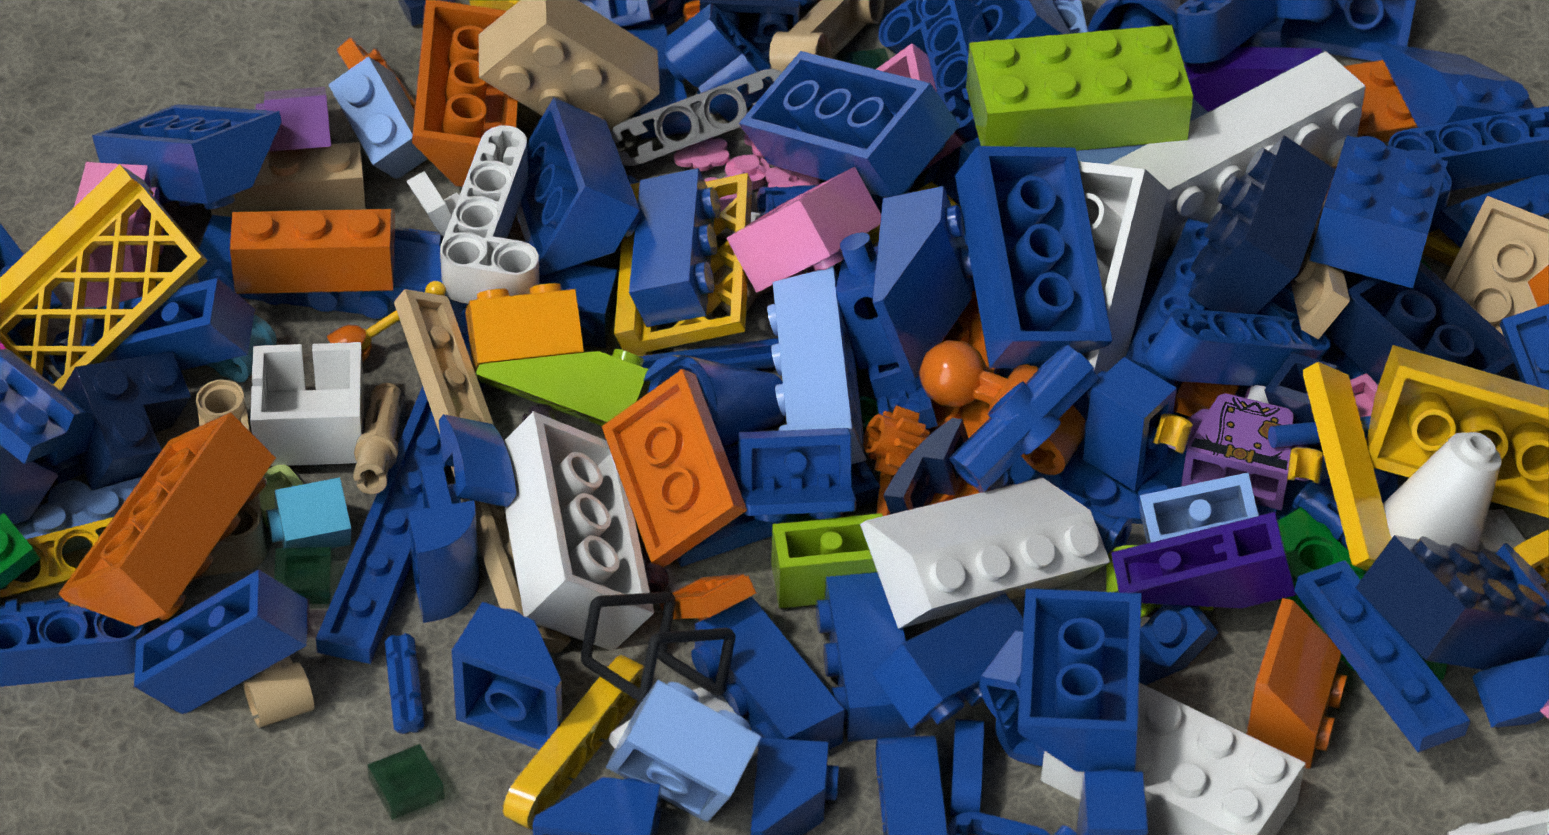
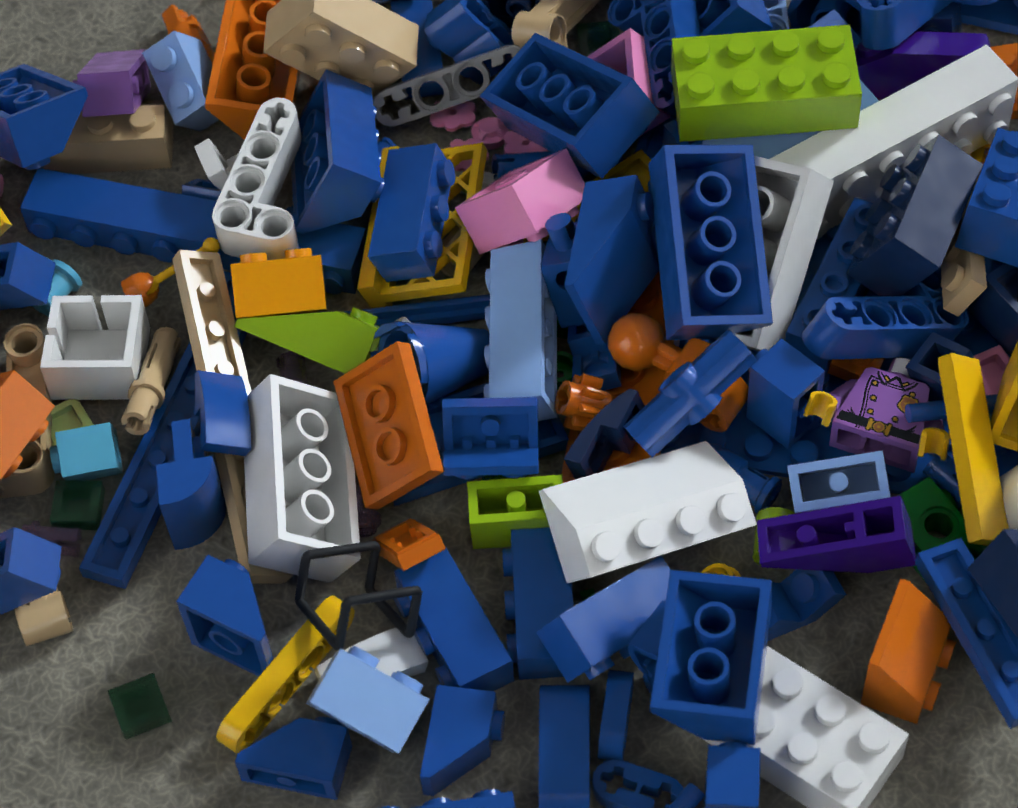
camera: 10 degrees right, 10 degrees up
(313, 251) = (112, 205): orange slope -> none
(404, 683) = (150, 610): blue axle -> none

